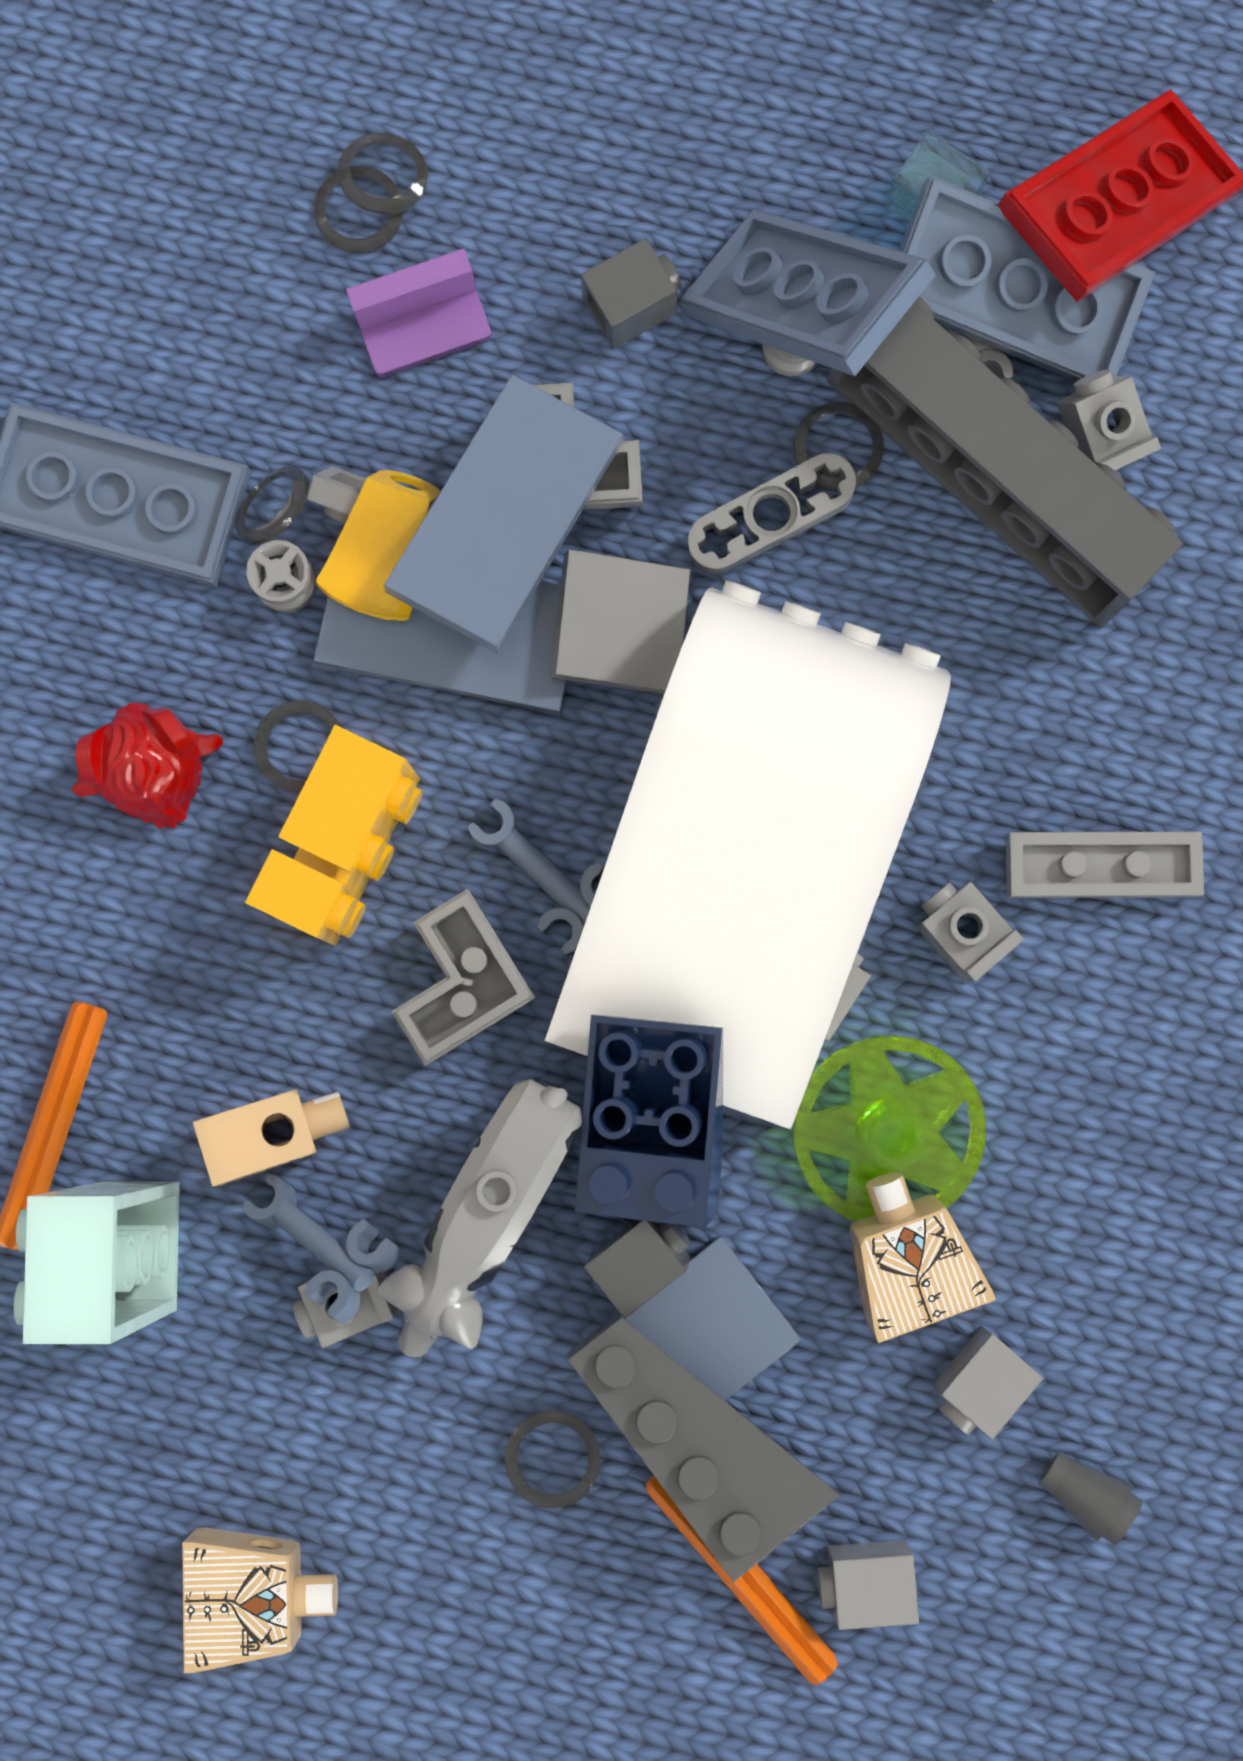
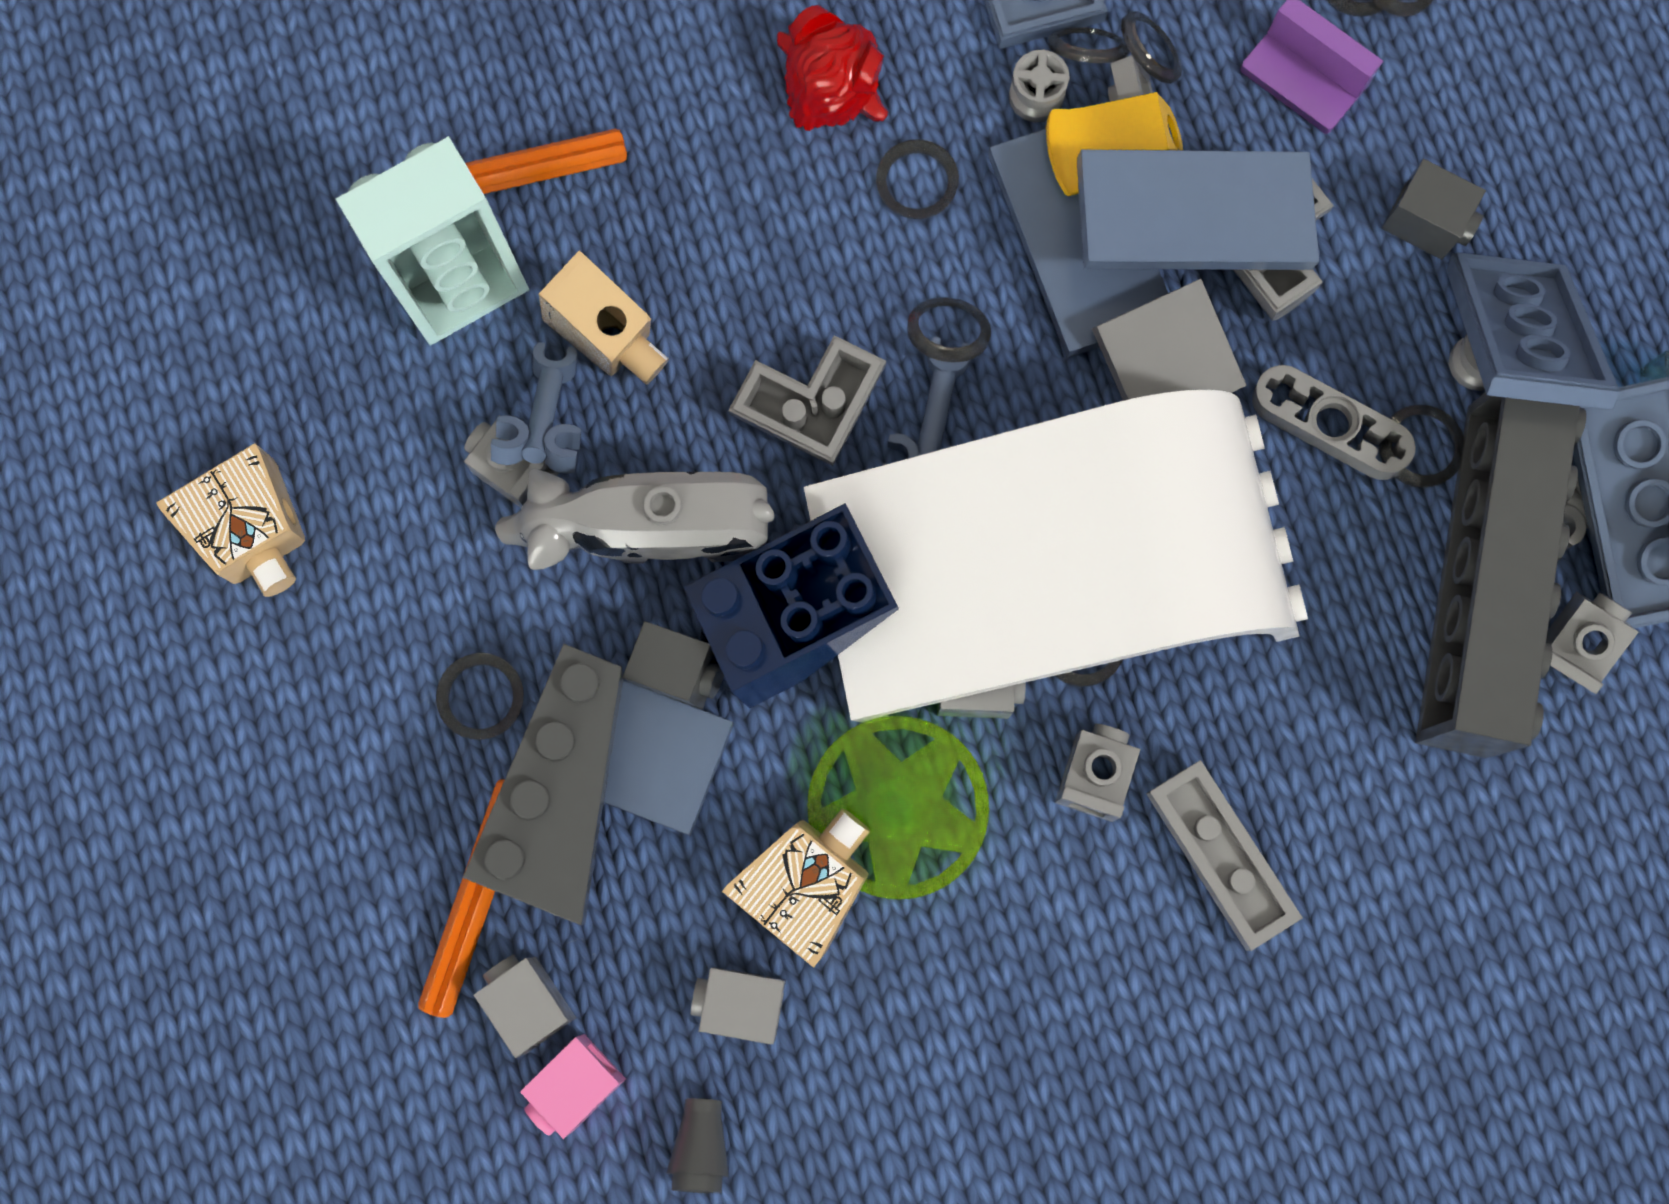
camera: 55 degrees right, 5 degrees down
(310, 465) = (1140, 53): none -> clear smoke piece
(341, 835) = (887, 237): yellow piece -> none
(487, 834) = (942, 353): none -> clear smoke piece
(970, 1583) = (570, 1087): none -> bright pink brick

